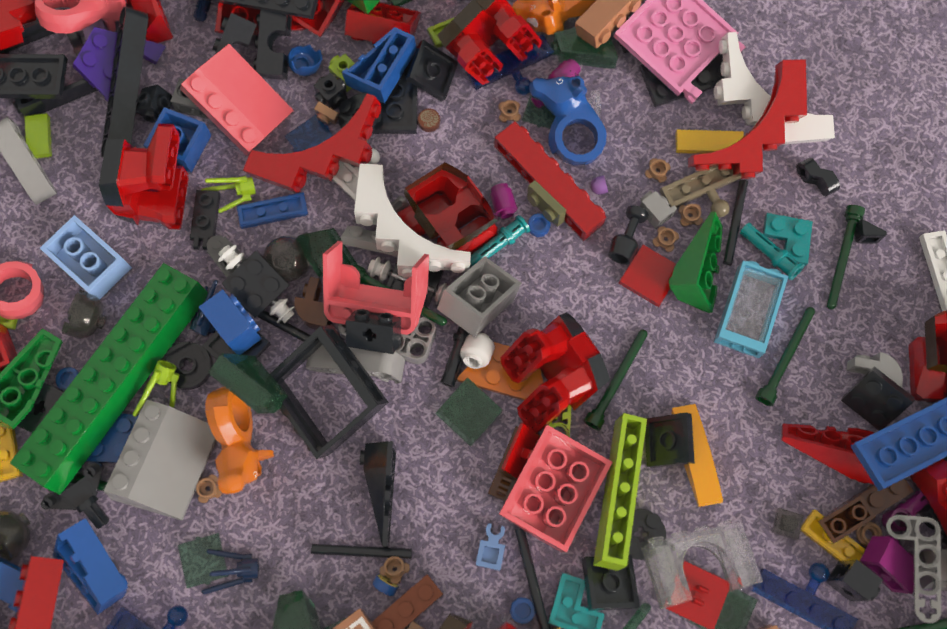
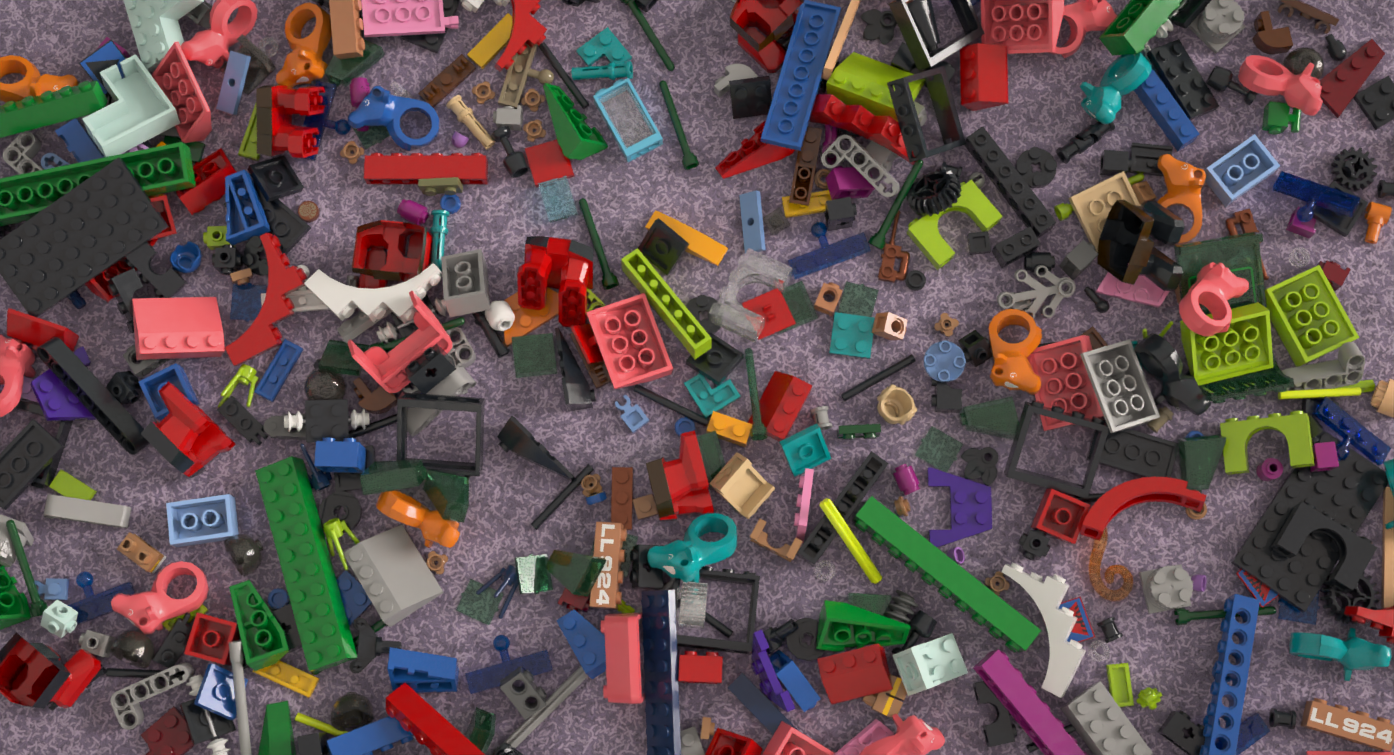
camera: 45 degrees left, 5 degrees up
(20, 232) = (141, 552): none -> medium nougat hips
(264, 587) = (532, 574): none -> clear green piece
(274, 447) = (448, 494): none -> clear green slope
(472, 472) = (575, 386): none -> black wedge
(624, 173) = (466, 116): none -> tan pin
(625, 310) = (557, 199): none -> clear light blue plate
(639, 133) = (447, 81): none -> reddish brown plate
(777, 493) = (752, 221): none -> medium blue tile

